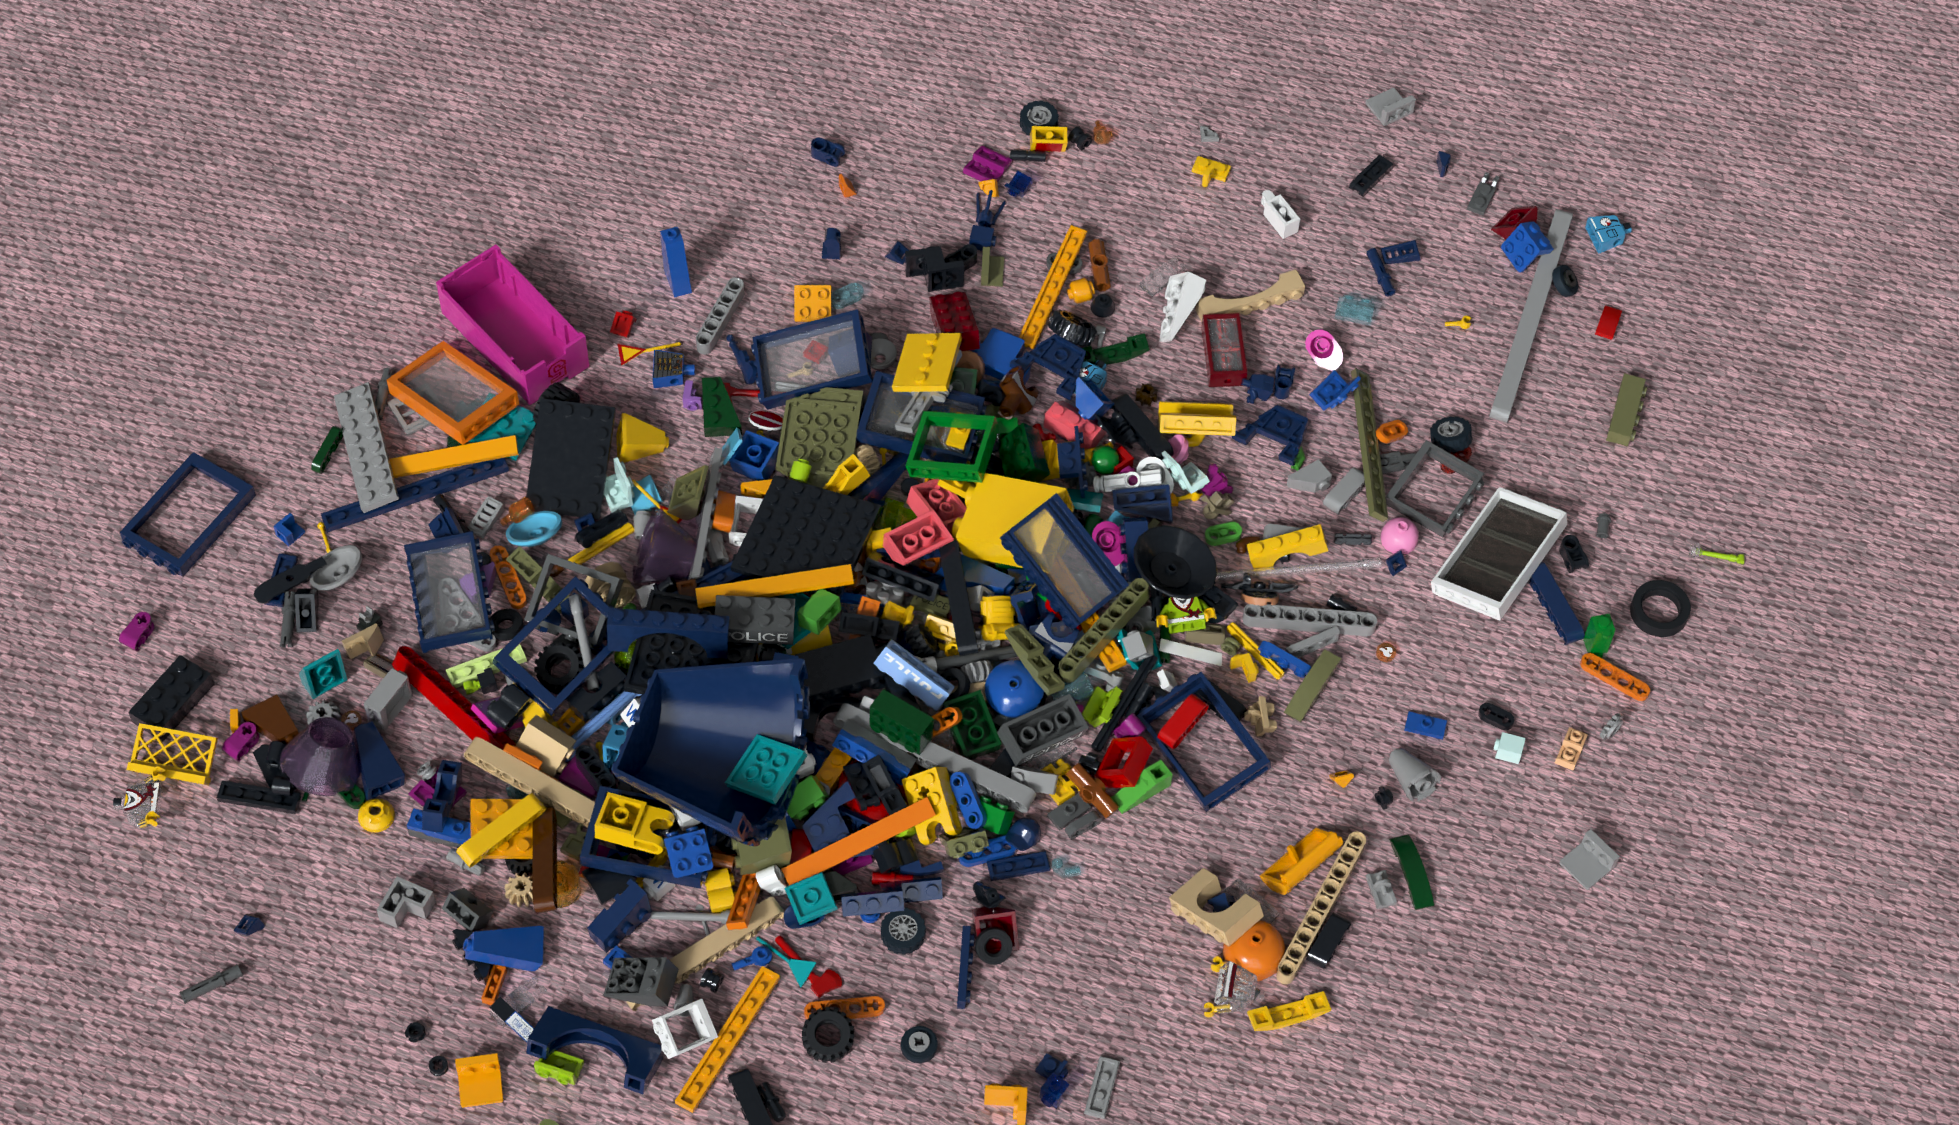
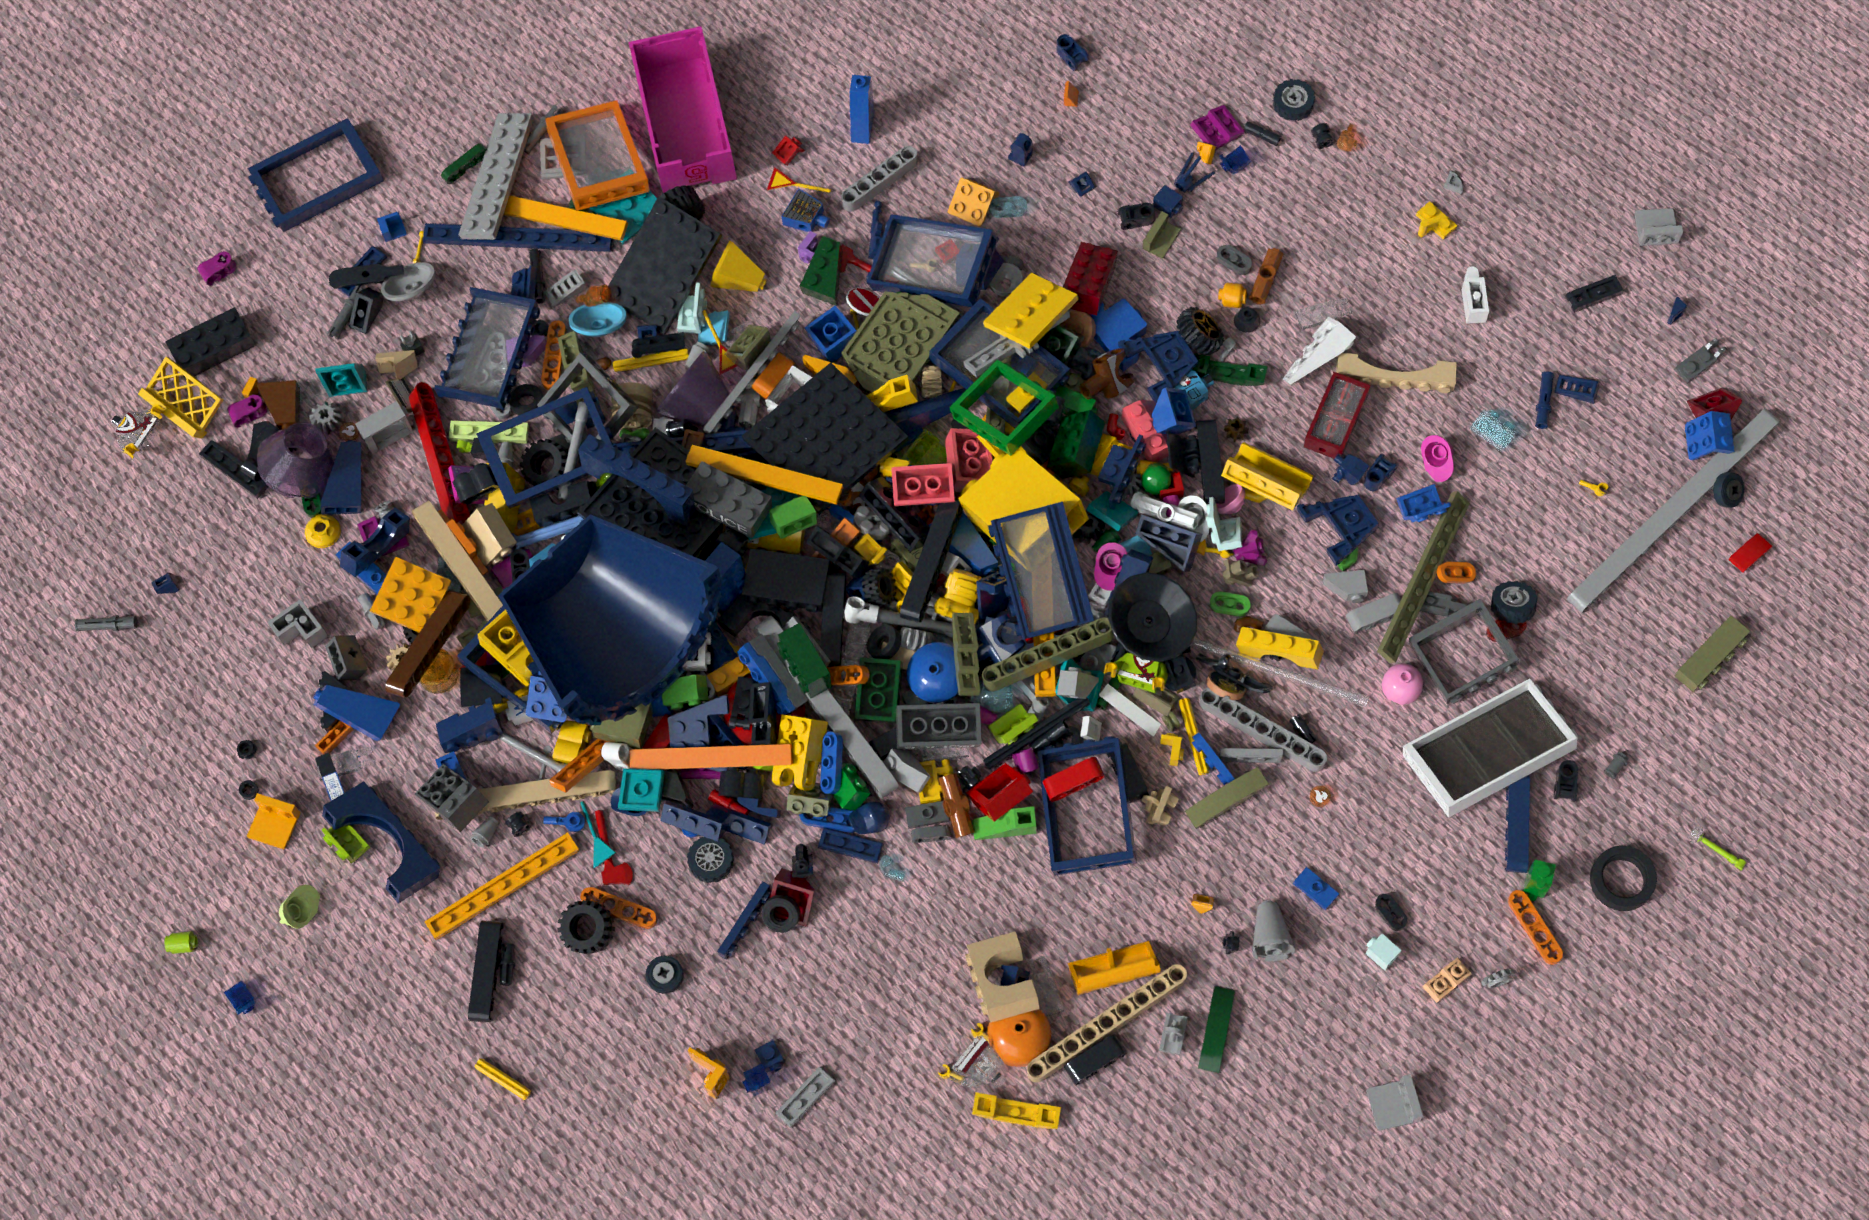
camera: 35 degrees right, 10 degrees up
(501, 830) = (403, 599): yellow beam -> none
(702, 1024) = (485, 860): white window -> none
(731, 445) = (814, 314): medium azure piece -> none
(766, 769) = (648, 653): teal plate -> none
(800, 471) = (857, 369): lime brick -> none
(914, 675) = (846, 618): light blue brick -> none
(936, 272) = (1102, 211): black bracket -> none
(1048, 139) = (1289, 124): yellow brick -> none
(1052, 286) = (1207, 279): light orange tile -> none
(1353, 539) = (1355, 665): black axle -> none
(1396, 558) = (1385, 704): dark blue slope -> none
(1606, 232) = (1806, 455): dark azure torso -> none

